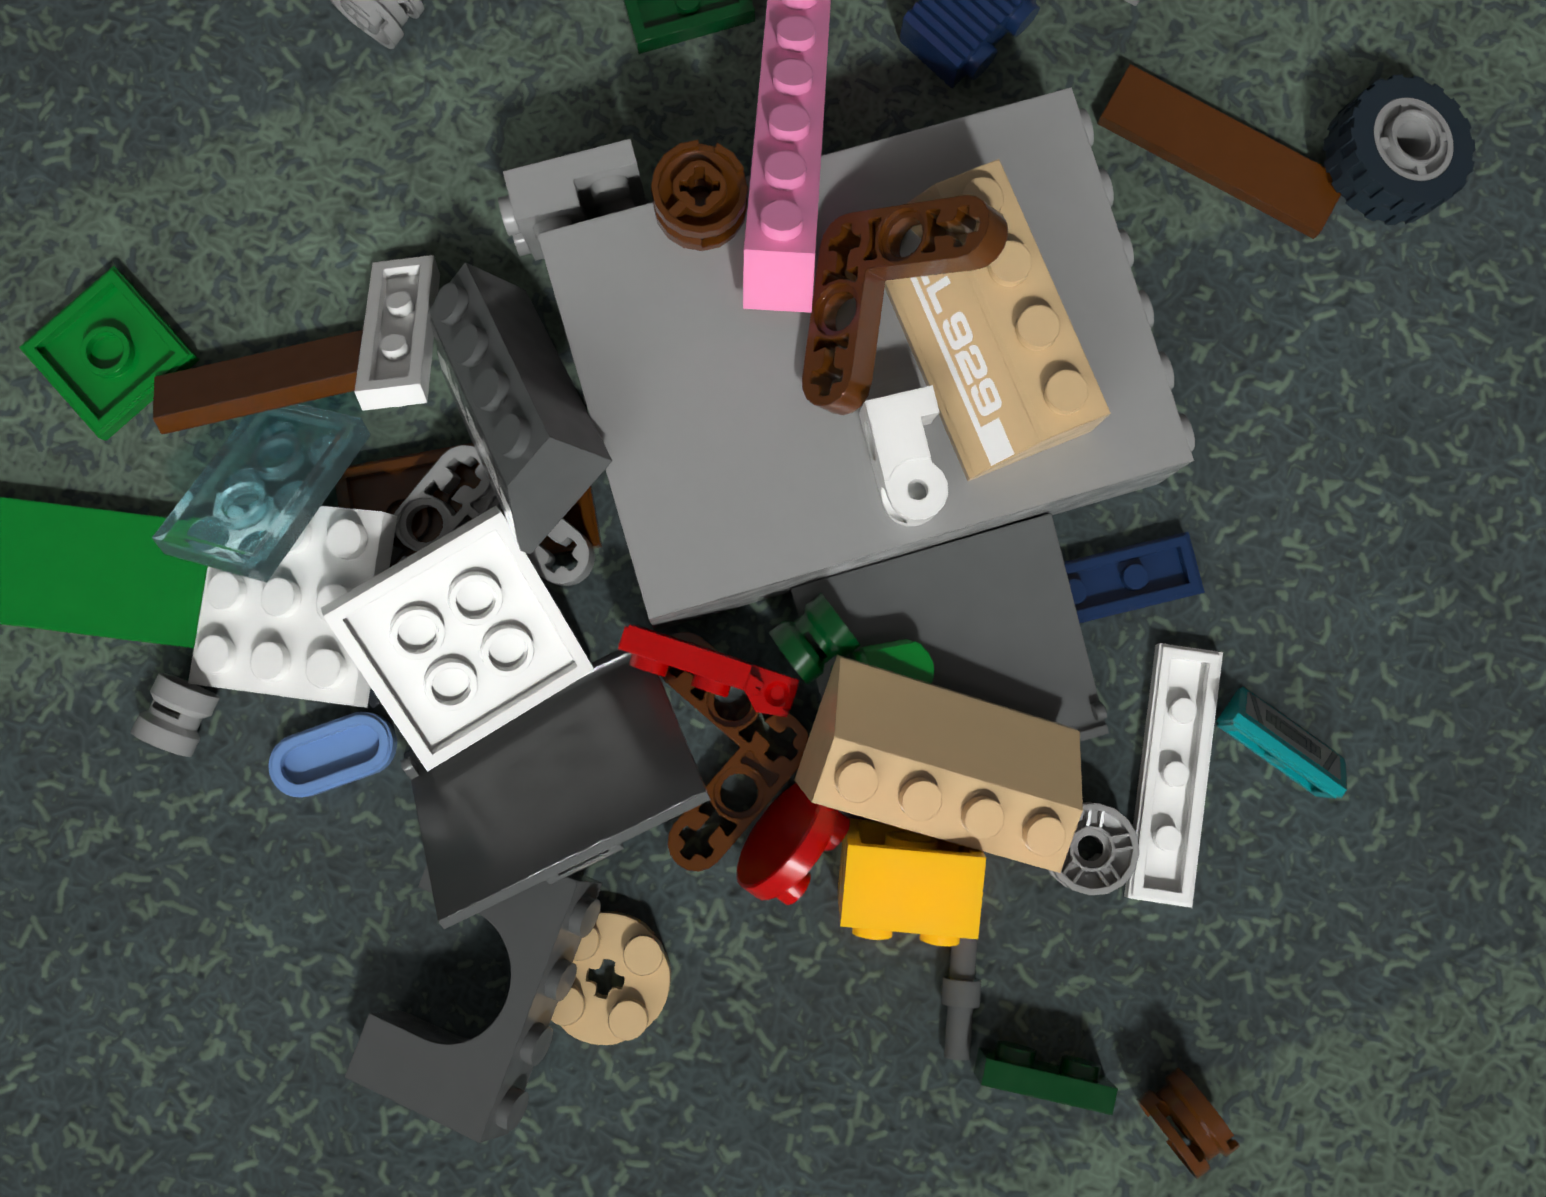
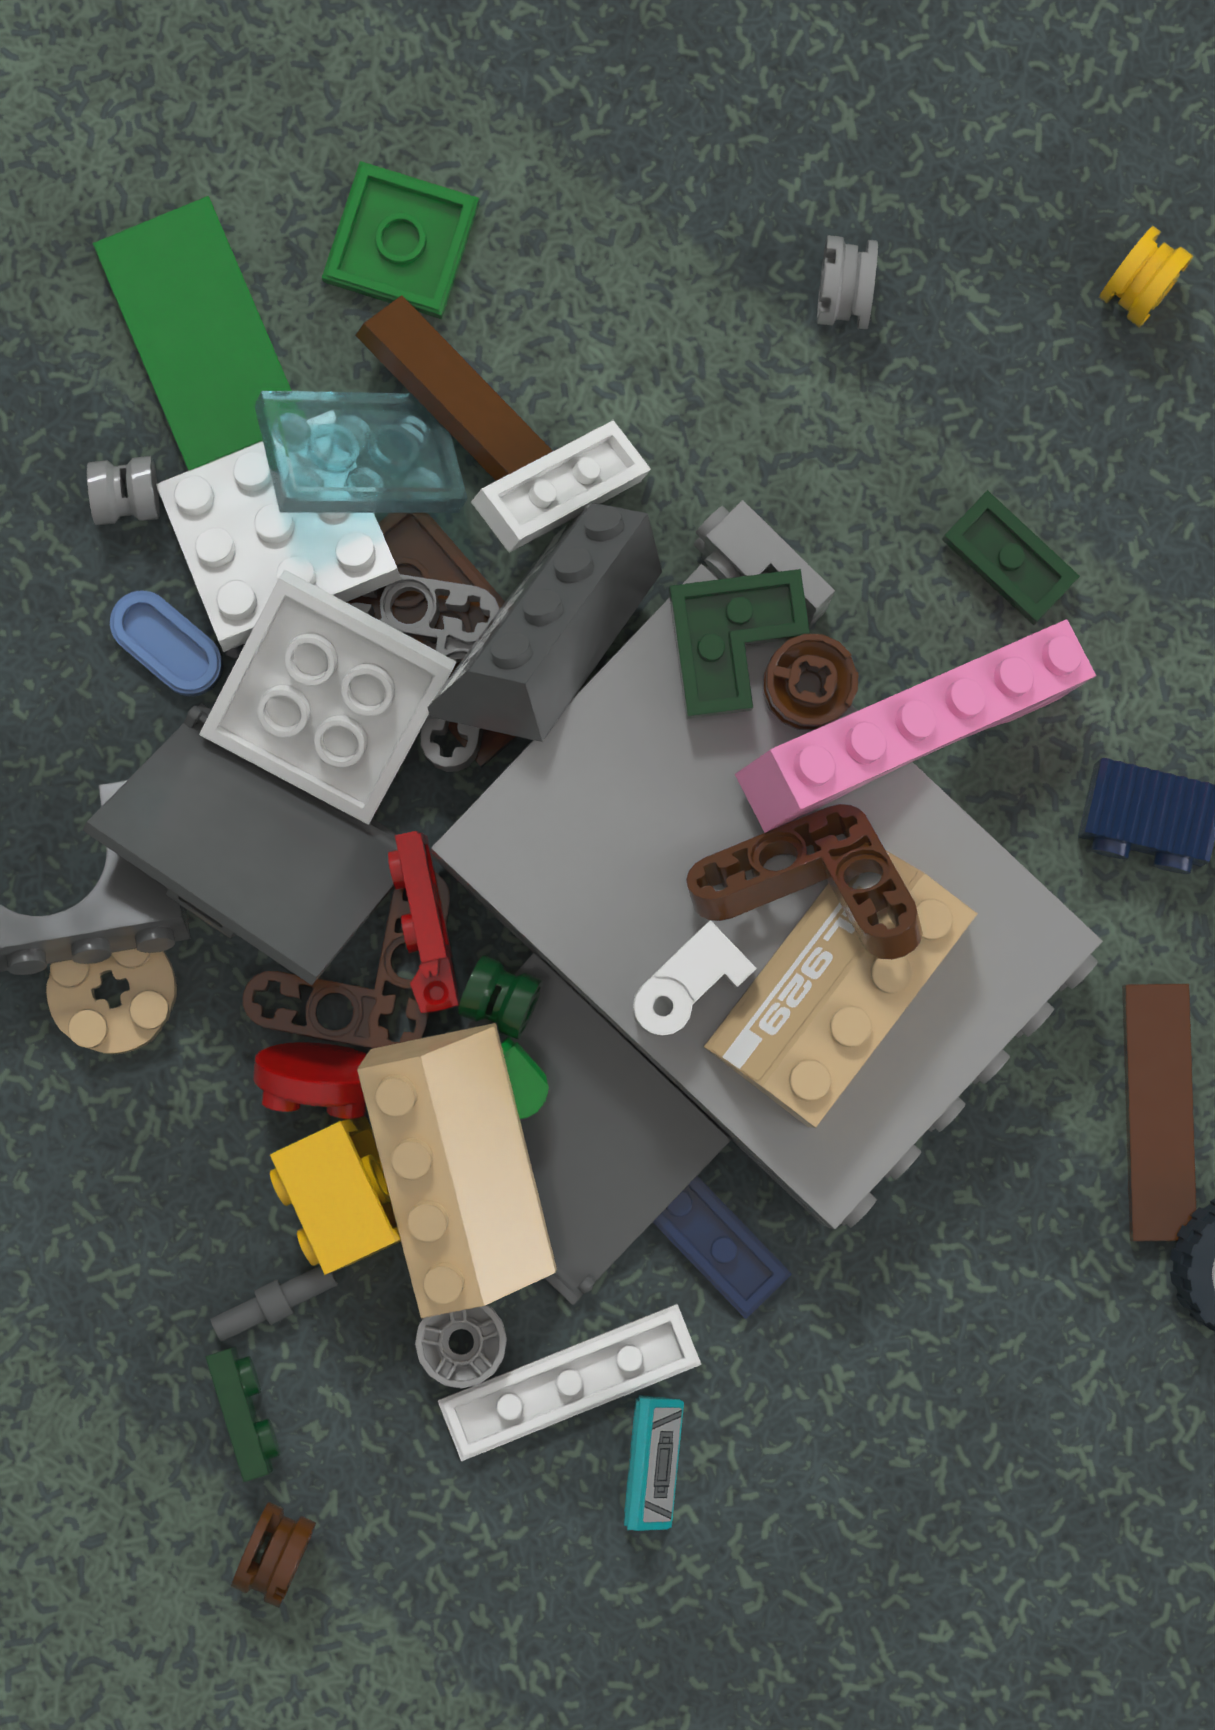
camera: 50 degrees right, 0 degrees up
(598, 241) = (715, 624): none -> dark green plate

